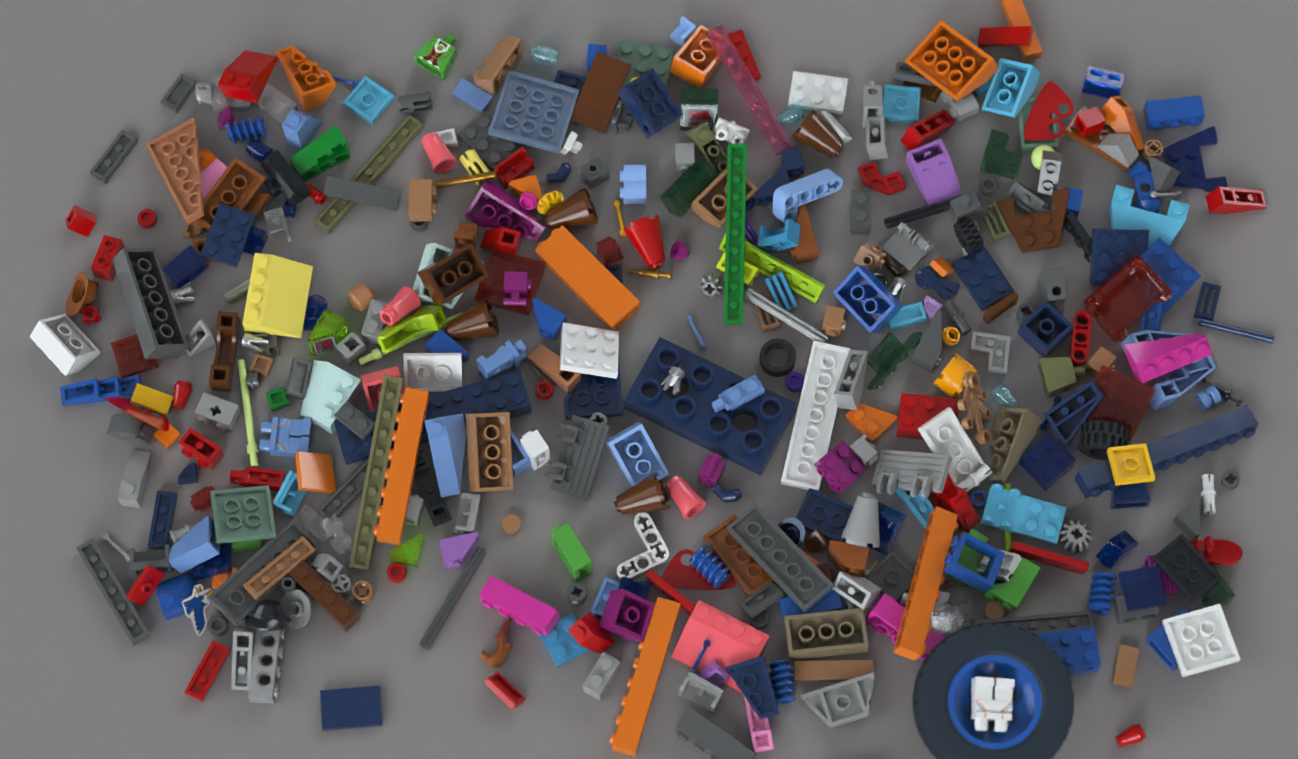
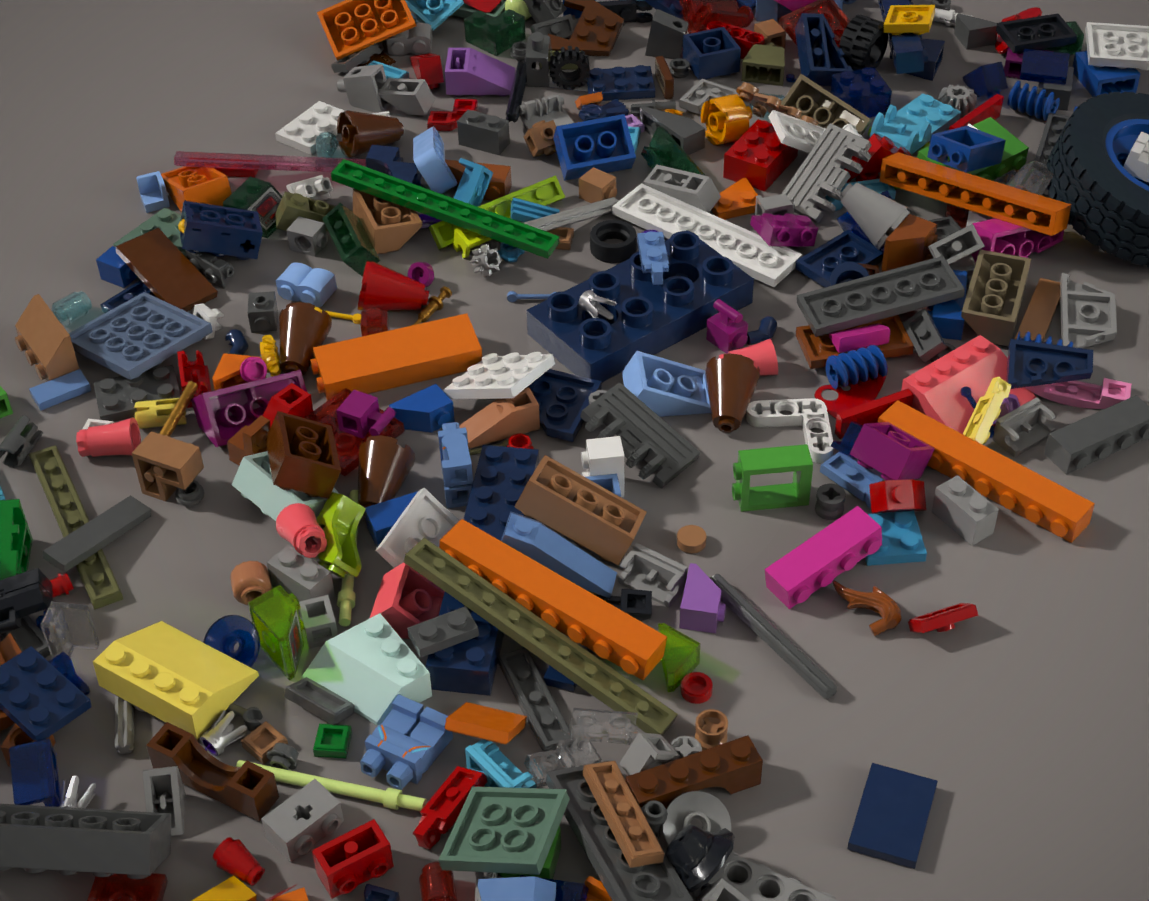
camera: 65 degrees left, 25 degrees down
(690, 661) = (987, 410): none -> light yellow hinge
(738, 558) = (860, 337): none -> dark pink slope

